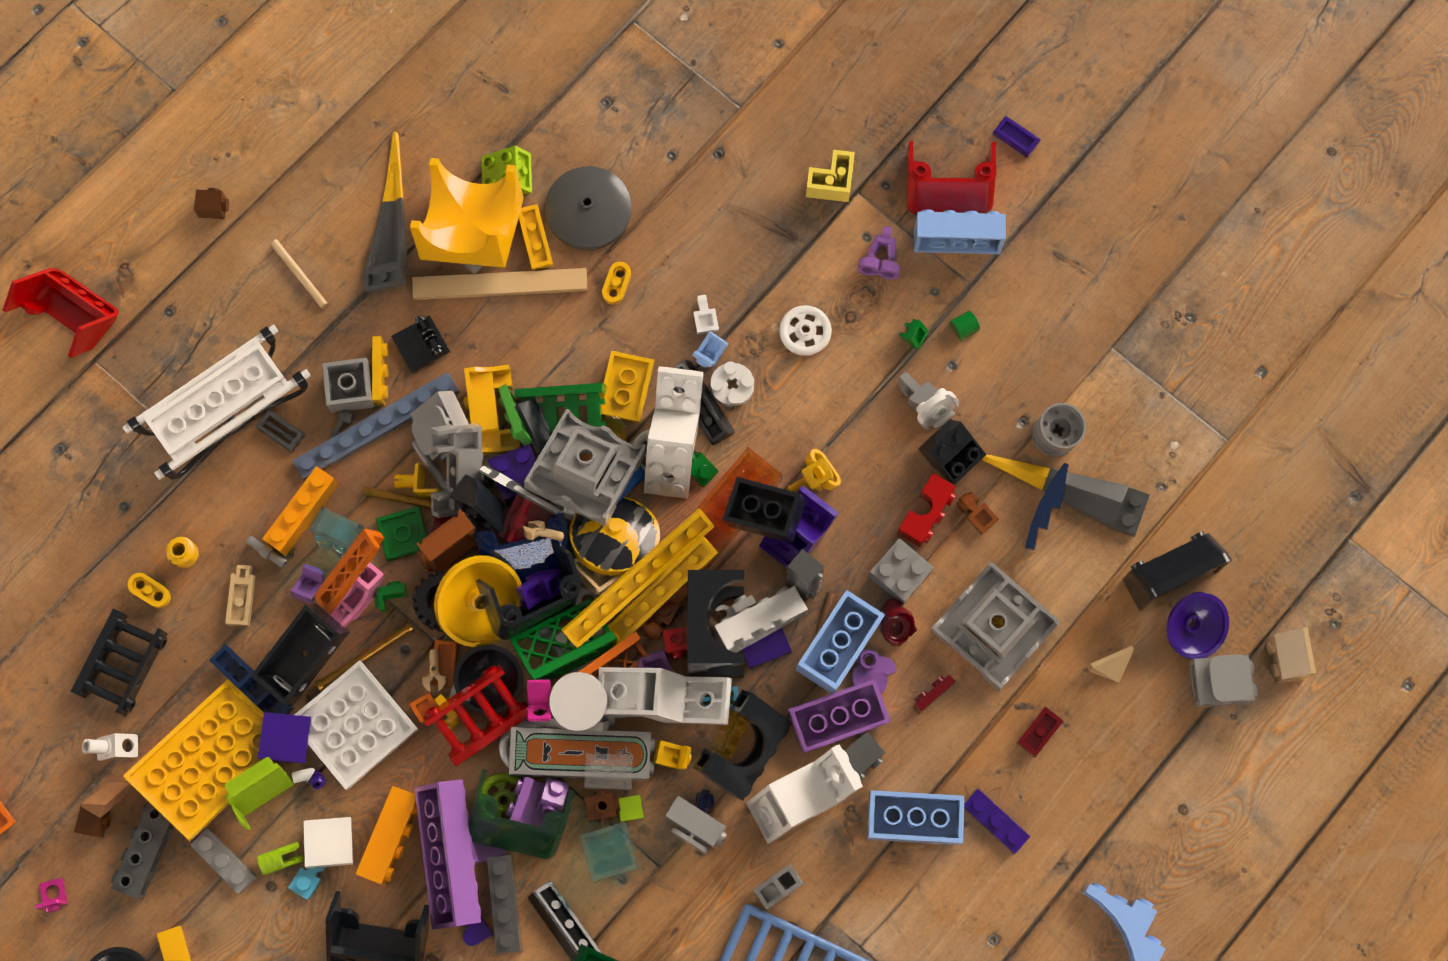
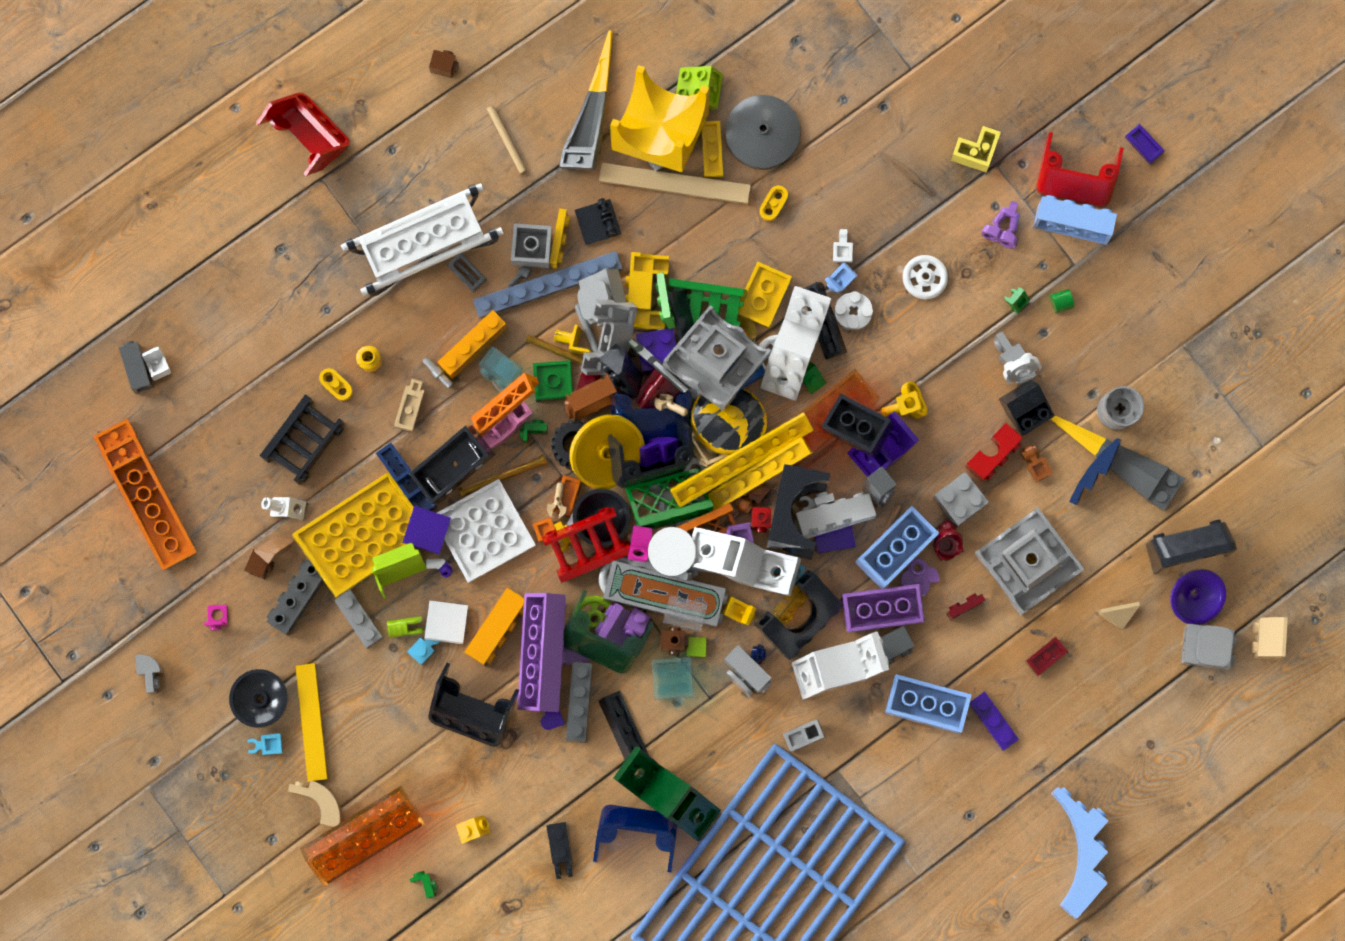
camera: 15 degrees right, 5 degrees up
(308, 584) = (467, 407): medium lavender bracket -> none

